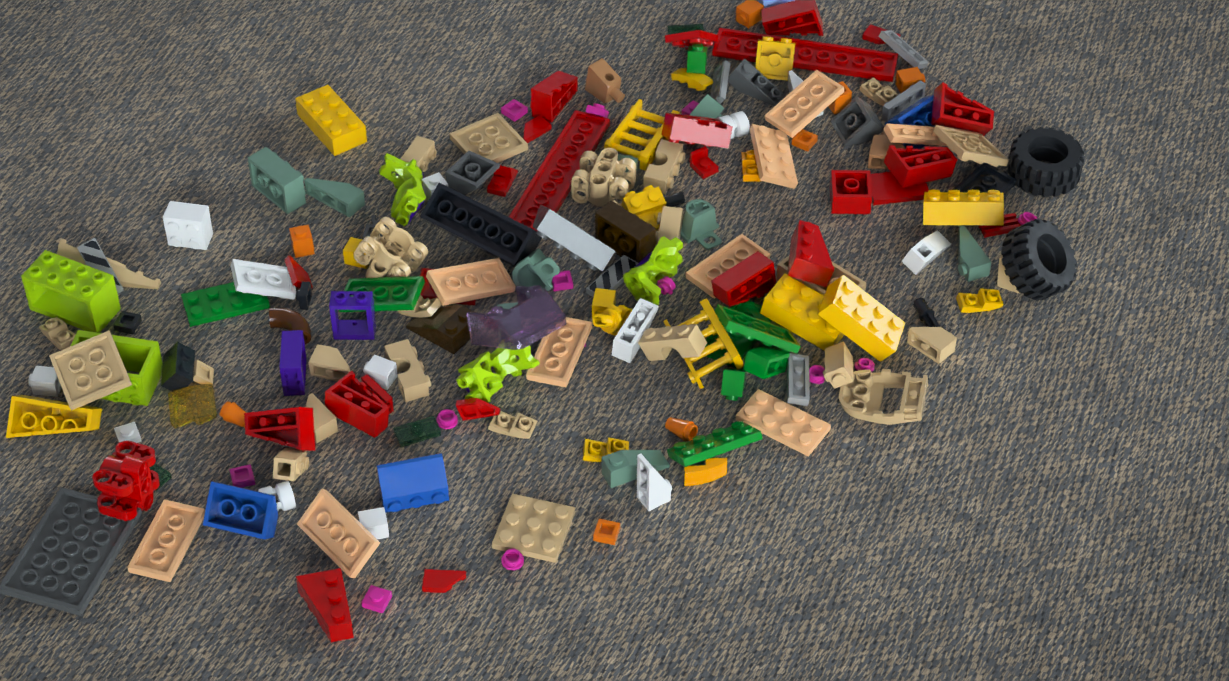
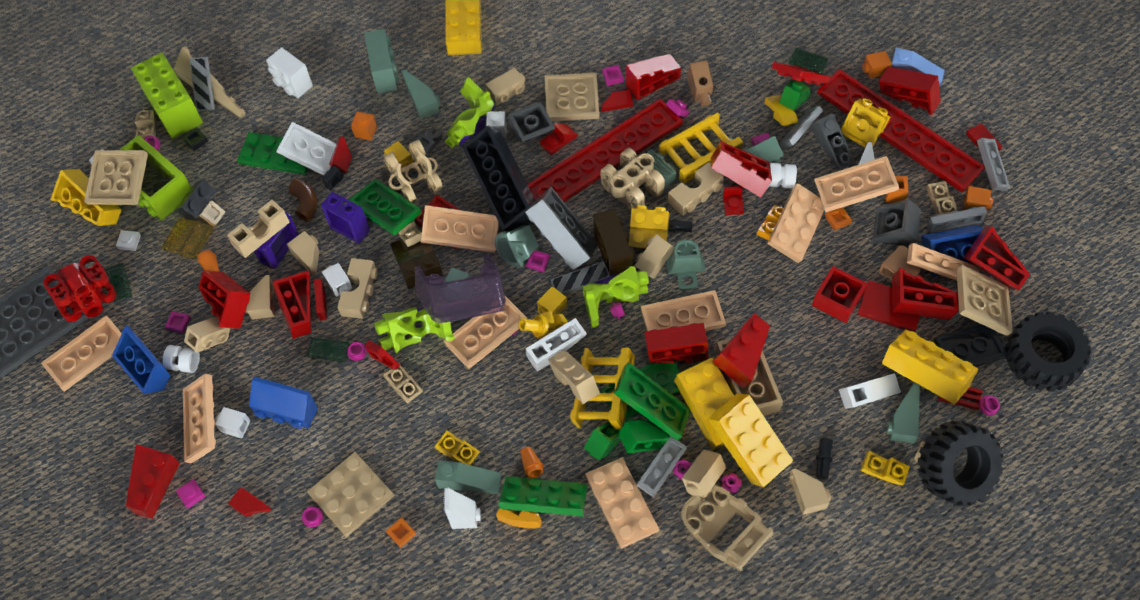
camera: 35 degrees right, 15 degrees up
(283, 355) = (270, 221): none -> tan arch

